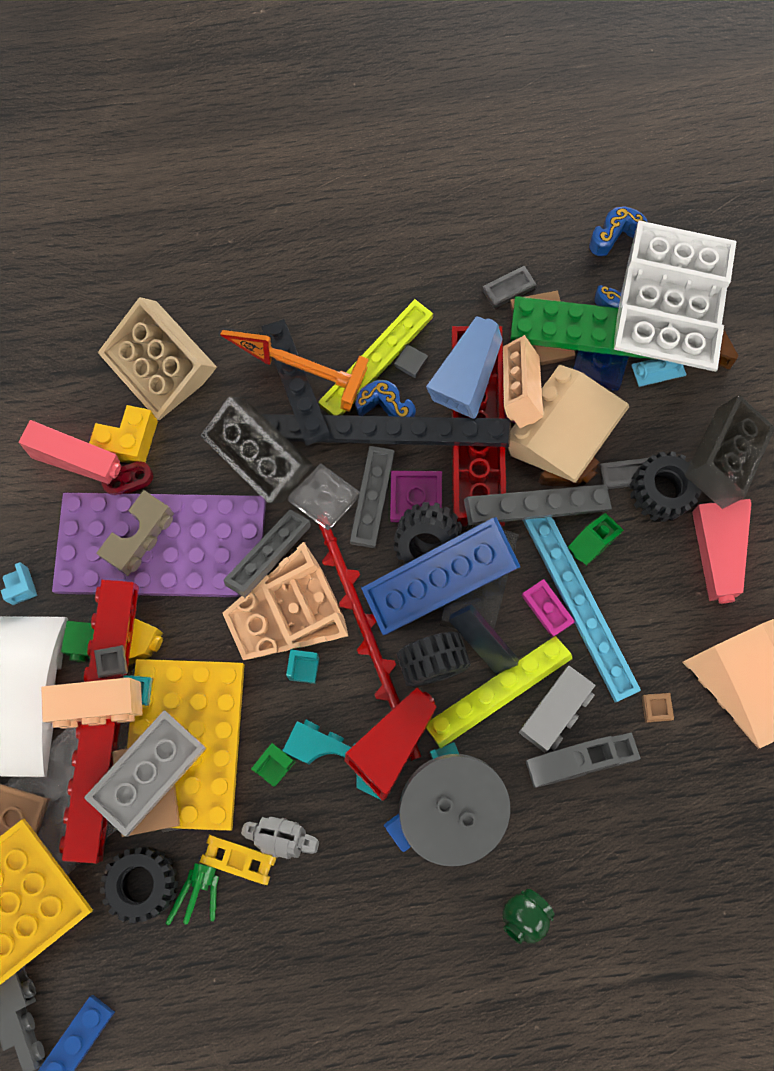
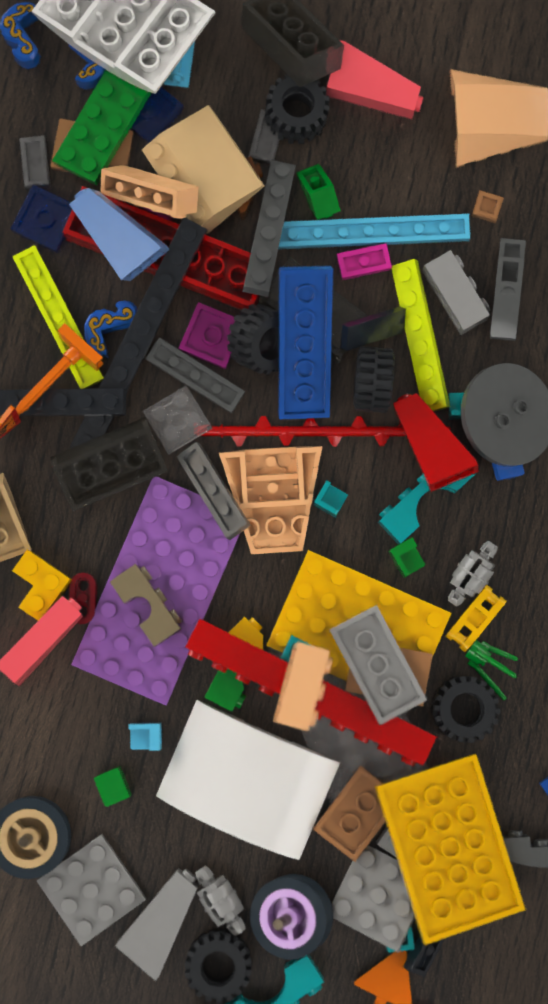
camera: 70 degrees left, 10 degrees up
(111, 662) = (266, 663): dark grey tile -> none
(411, 361) = (73, 286): dark grey tile -> none
(459, 308) = (42, 218): none -> clear blue plate

